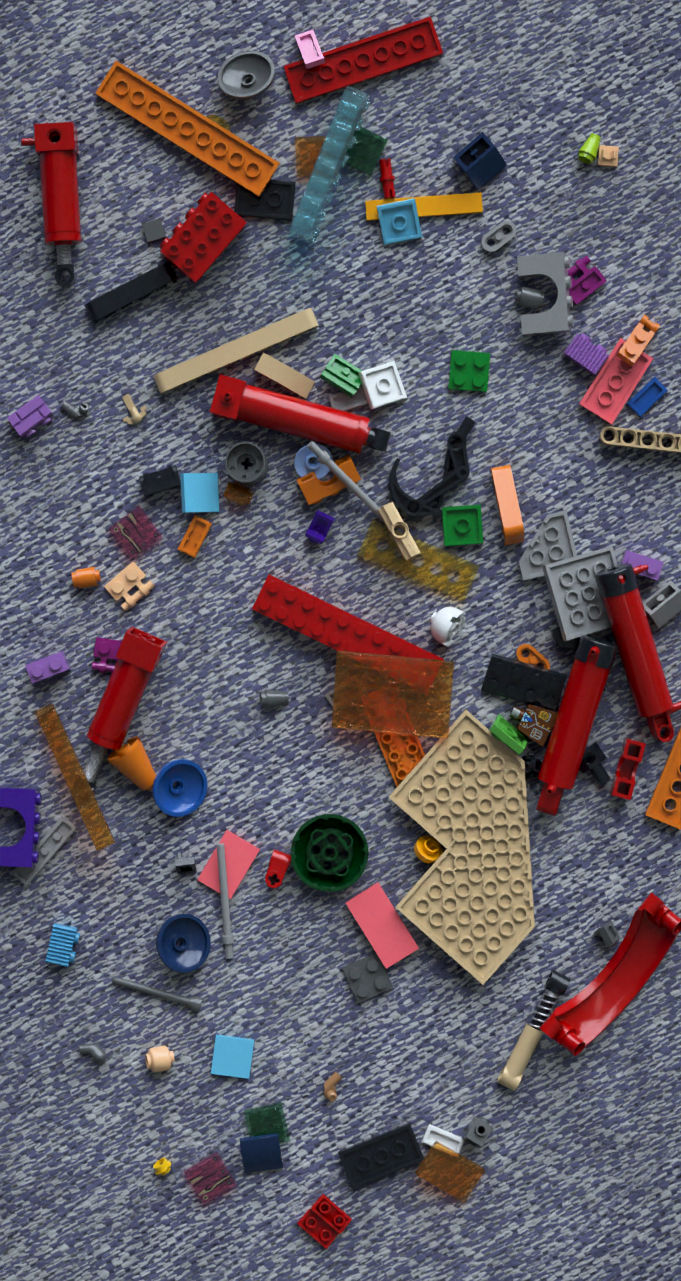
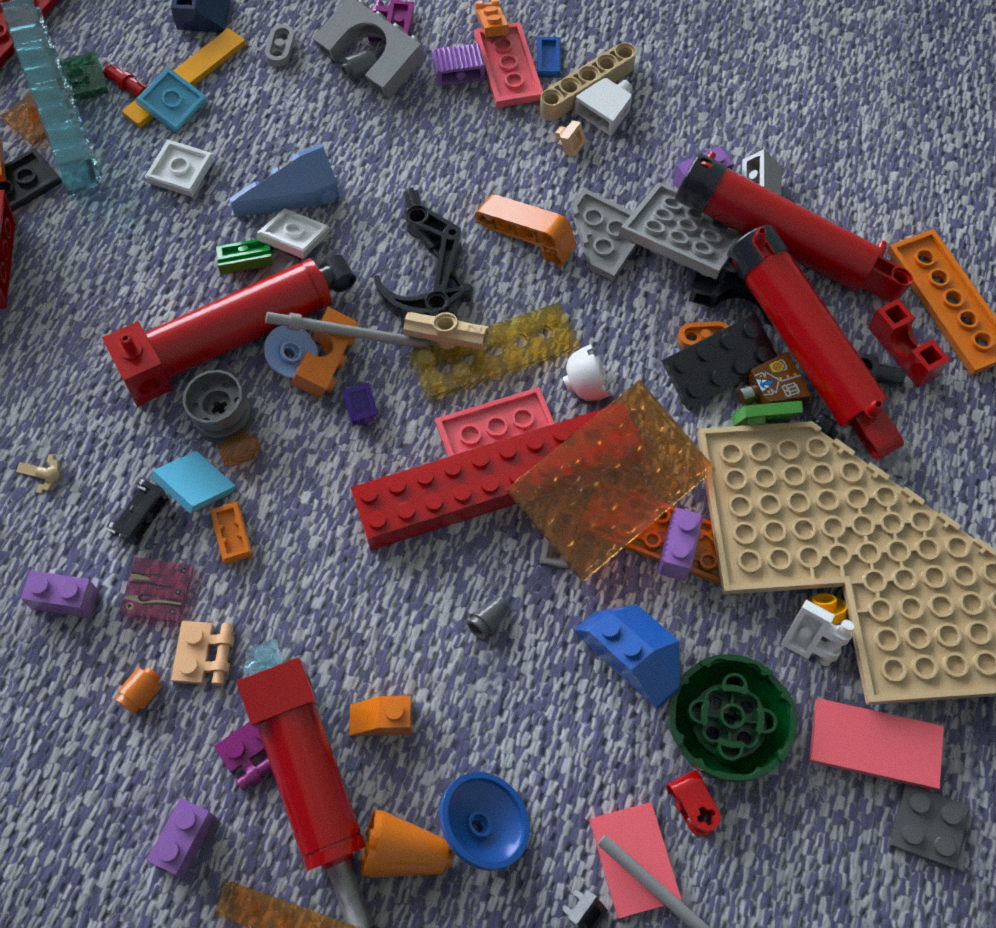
camera: 45 degrees left, 25 degrees down
(89, 493) = (59, 594): none -> medium lavender brick
(151, 623) = (263, 657): none -> clear light blue brick
(179, 696) = (381, 716): none -> orange slope
(235, 350) = (111, 314): tan beam -> none
(284, 375) = (172, 302): tan slope -> none
(321, 780) = (636, 650): none -> blue wedge
(362, 276) = (179, 168): none -> white plate
(375, 604) = (493, 421): none -> coral tile
(393, 756) = (680, 544): none -> medium lavender brick
(408, 854) = (809, 627): none -> white plate
(417, 360) = (297, 185): none -> medium blue wedge
(462, 525) = (503, 283): green plate -> none
(469, 371) = (366, 161): green plate -> none
(595, 470) = (571, 138): none -> light nougat tile
(640, 466) = (605, 104): none -> white torso

